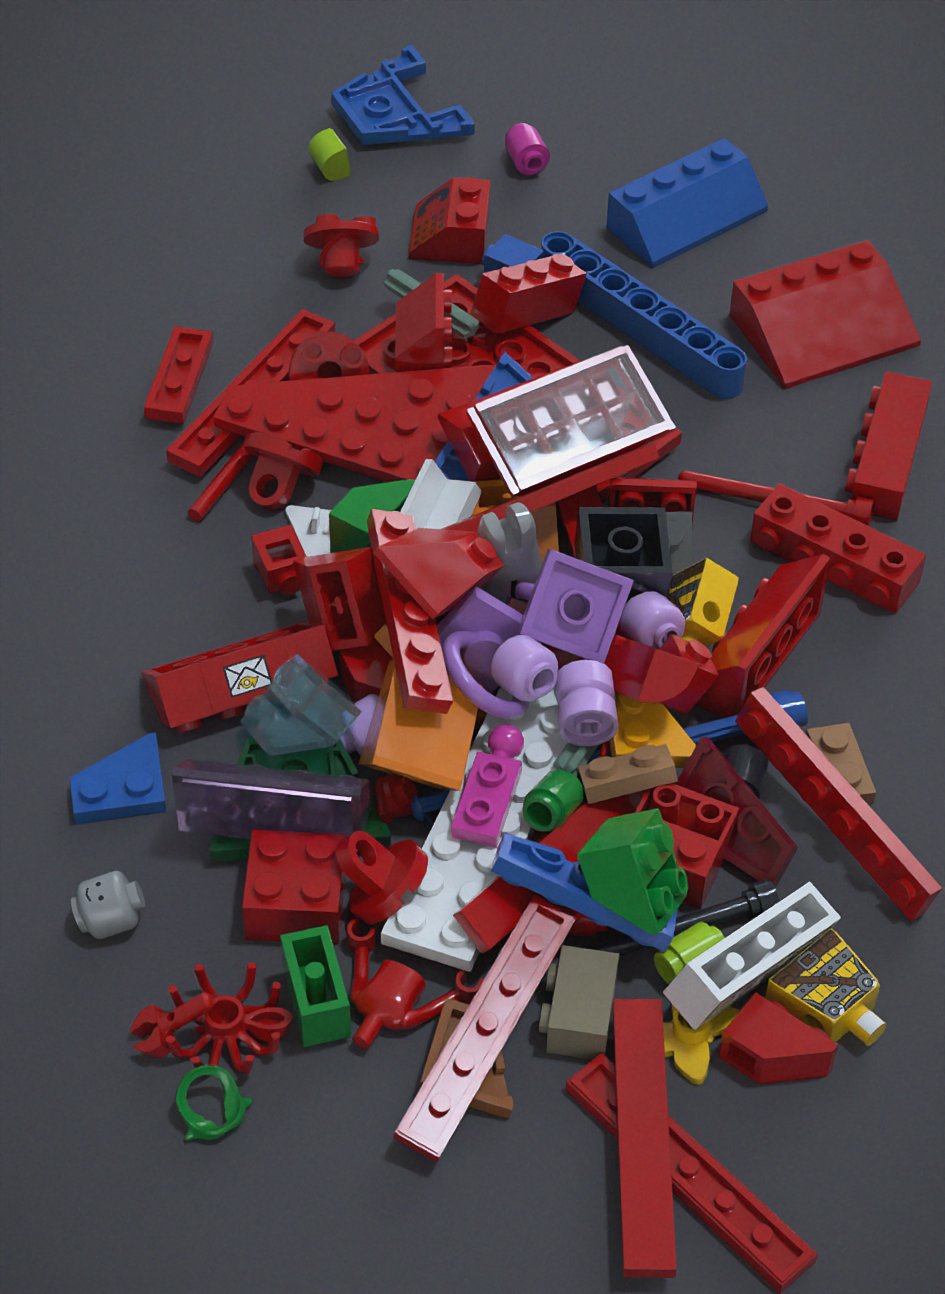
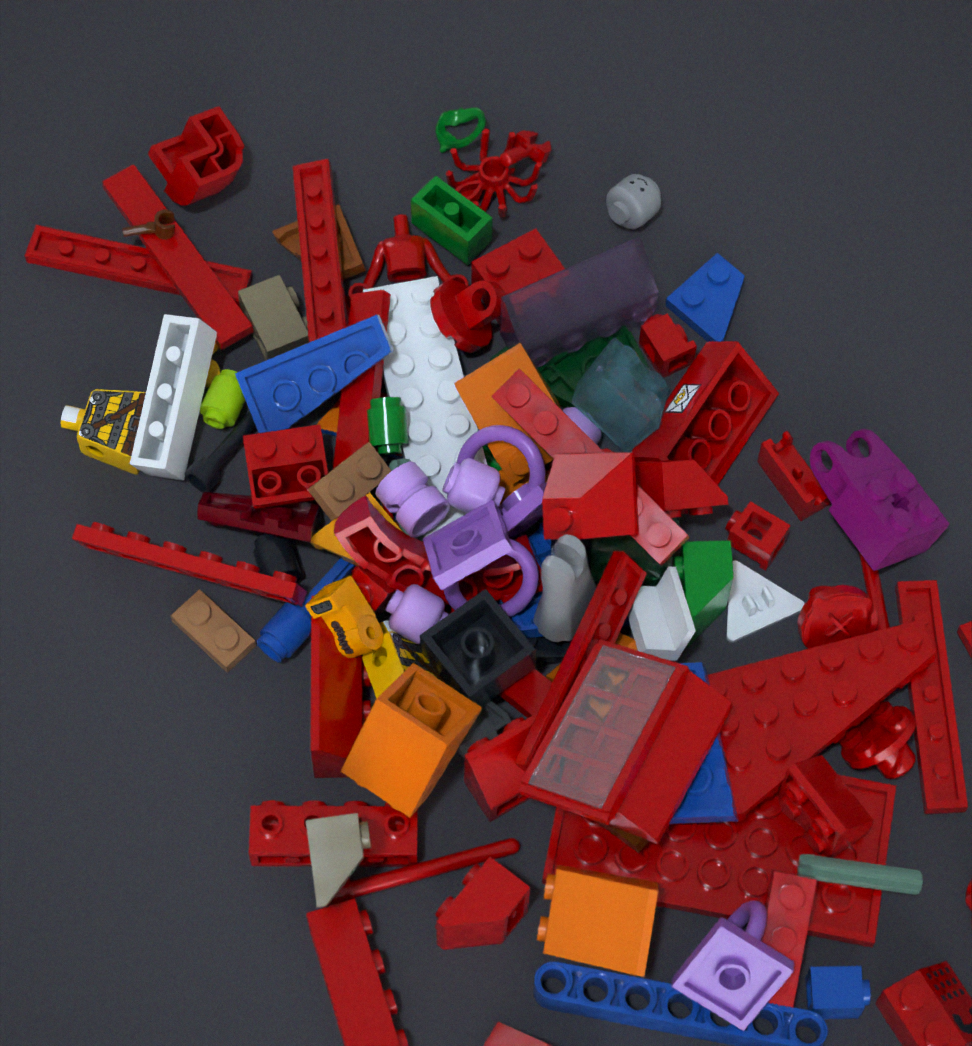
camera: 145 degrees right, 15 degrees up
(158, 510) = (877, 500): none -> magenta brick
(200, 591) = (792, 477): none -> red hinge
(209, 741) = (666, 345): none -> red brick
(490, 788) = (436, 404): dark pink plate -> none
(541, 1222) = (200, 158): none -> red brick
(593, 264) = (733, 969): none -> medium lavender tile
(634, 869) = (287, 388): green slope -> none
(649, 1163) = (161, 231): none -> reddish brown hand
(669, 357) = (599, 919): none -> orange slope
(726, 638) = (348, 617): none -> light orange leg
(733, 514) = (410, 739): none -> orange slope
(753, 422) = (484, 909): none -> red slope
(775, 1045) = (121, 366): red slope -> none
(857, 478) = (335, 852): none -> dark tan slope

